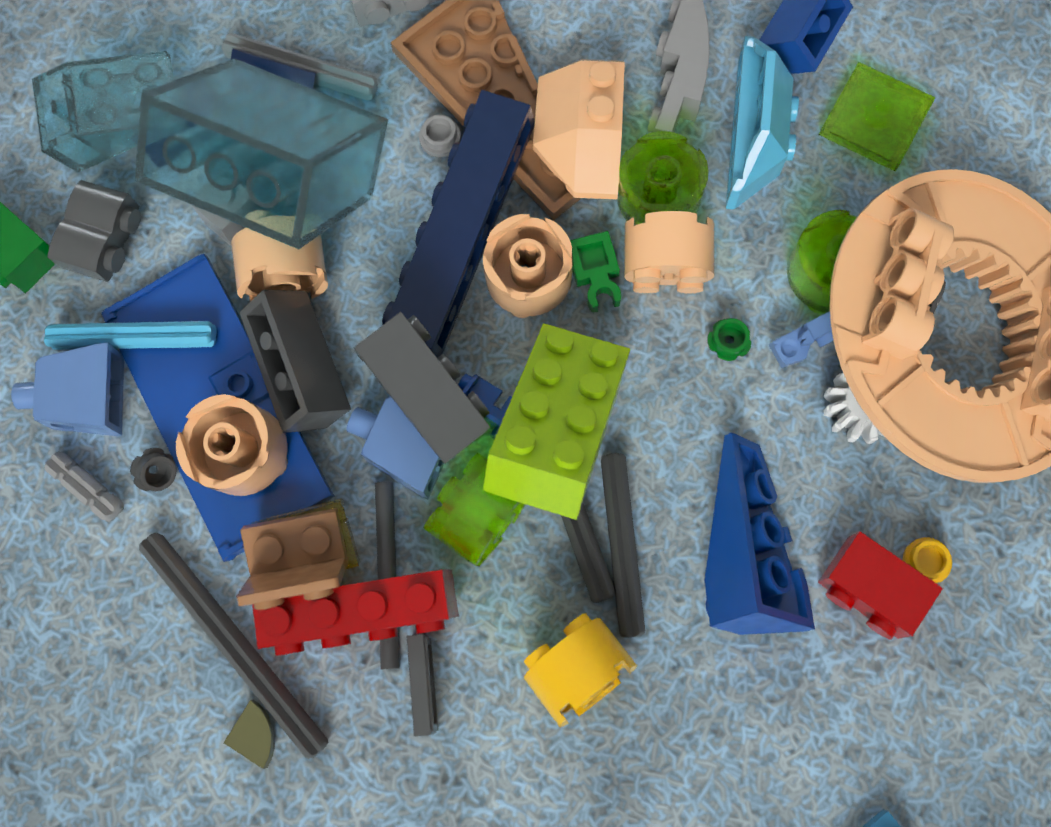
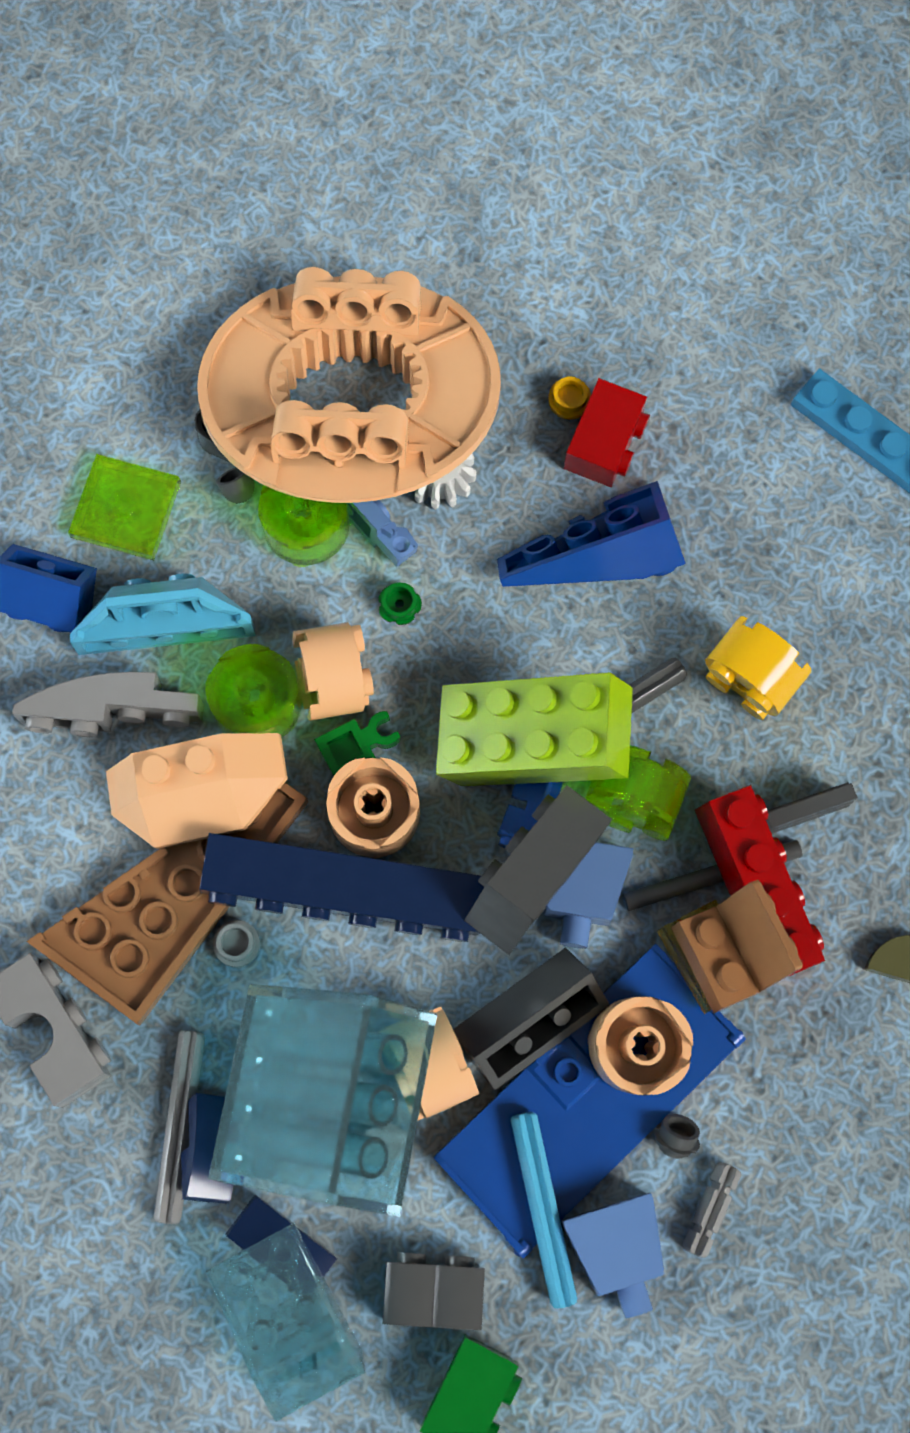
camera: 110 degrees left, 0 degrees up
(234, 646) = (819, 1006): dark grey axle -> none
(622, 545) = (644, 654): dark grey axle -> none

